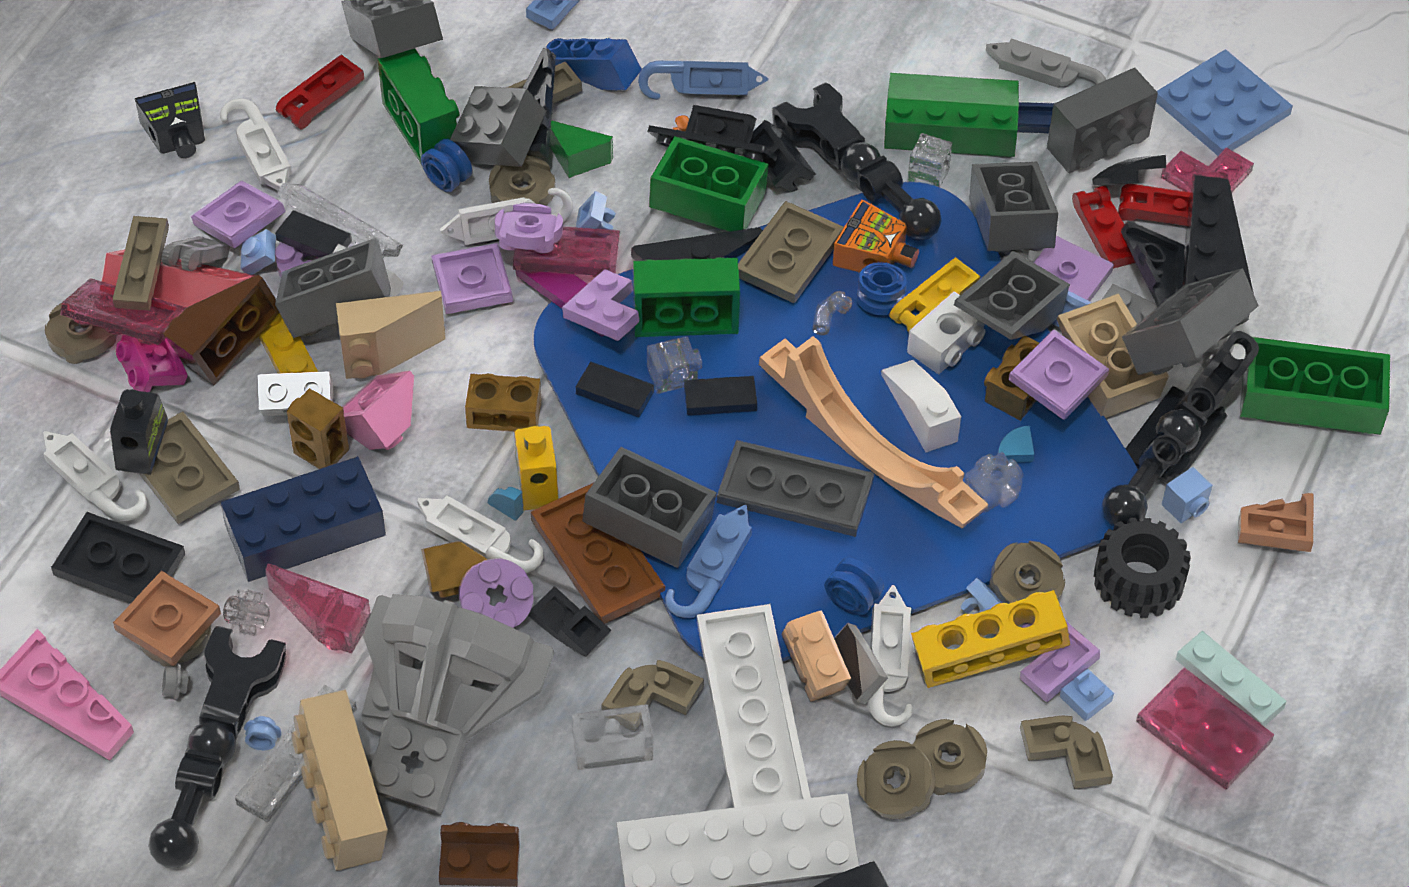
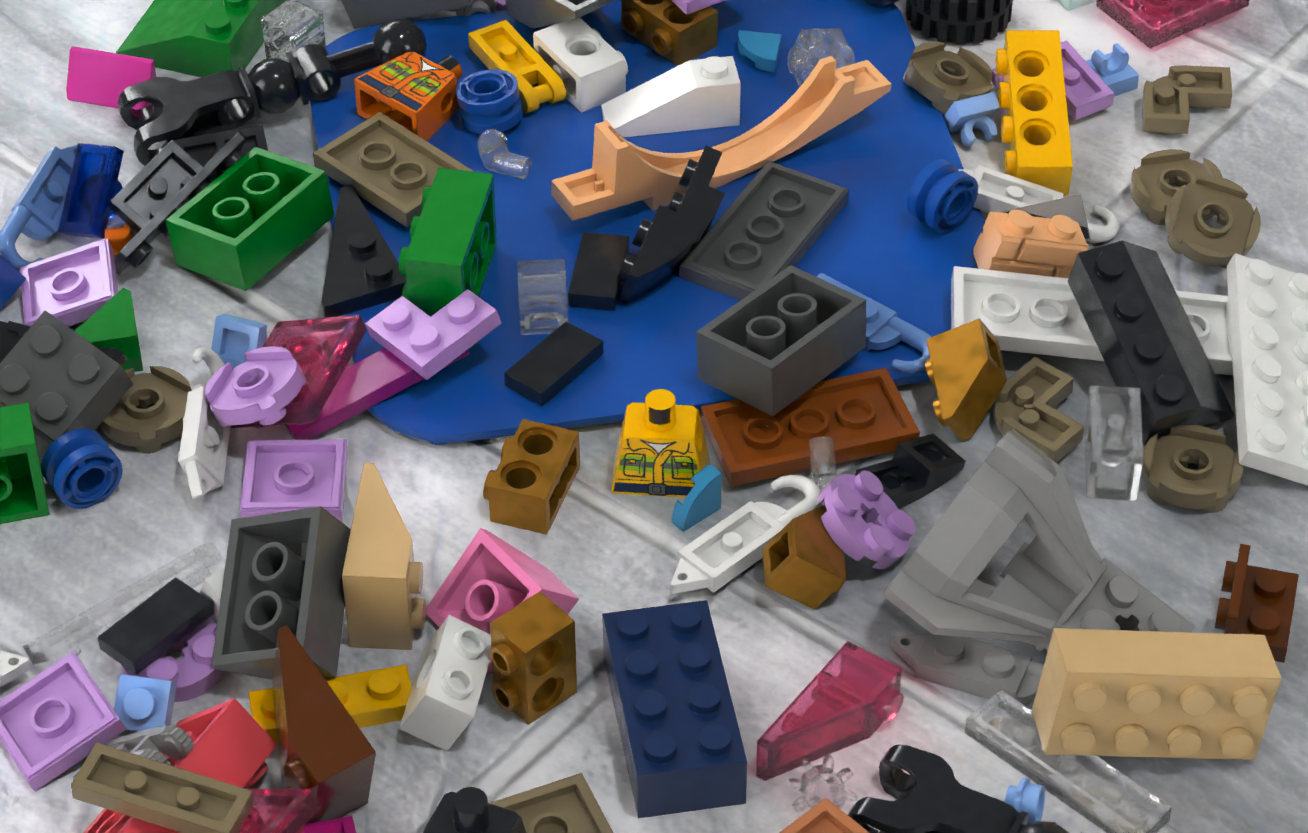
camera: 75 degrees left, 10 degrees down
(542, 570) = (822, 461): none -> clear arm
(609, 779) = (1171, 482): none -> dark tan plate
(623, 113) = (70, 284): none -> lavender plate
(654, 633) = (967, 376): none -> pearl gold slope
(715, 94) = (90, 190): none -> clear blue tile
(718, 741) = (1147, 337): none -> black slope
(749, 423) = (673, 229): none -> black slope
(849, 77) = (101, 76): none -> dark pink slope

